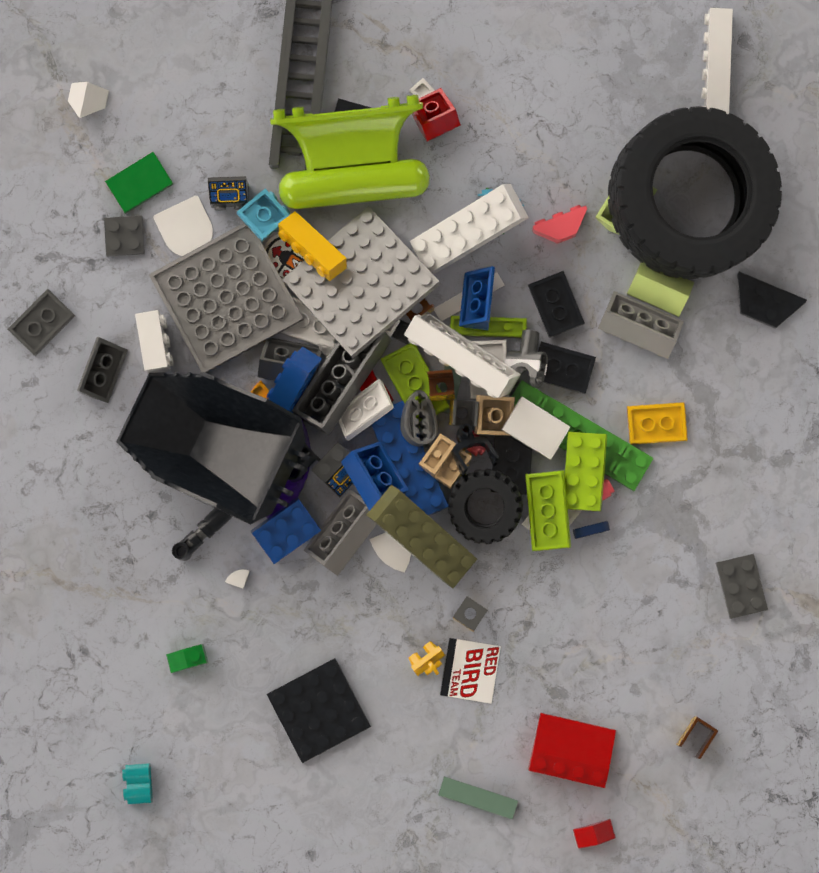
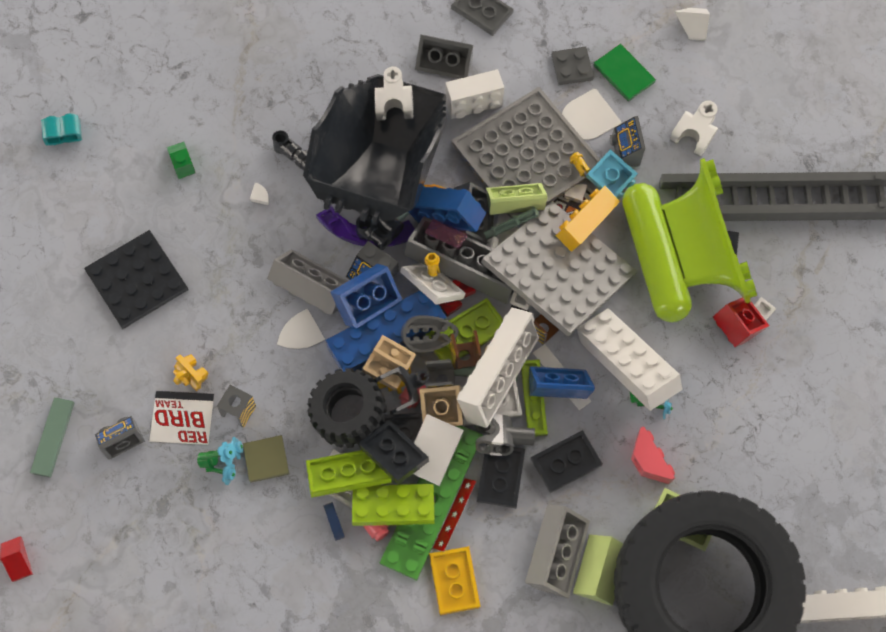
camera: 80 degrees right, 15 degrees down
(149, 426) = (393, 95): none -> white piece
(214, 117) = (697, 126): none -> white piece
(247, 245) = (577, 160): none -> yellow pin
(275, 253) = (576, 193): none -> white tile
(278, 315) = (516, 198): none -> yellowish green slope
(285, 530) = (307, 227): blue brick -> none
(306, 323) = (511, 223): none -> sand green piece
(315, 389) = (446, 233): none -> clear pink slope
(347, 406) = (432, 261): none -> yellow pin
(421, 536) = (308, 344): olive brick -> none
(487, 731) = (119, 437): none -> dark grey slope
(519, 643) = (227, 453): none -> medium azure plant
(522, 590) = (266, 458): none -> olive tile
(537, 465) = (393, 452): none -> black plate
(572, 750) = (100, 525): red slope -> none
(595, 415) = (454, 514): none -> red sticker

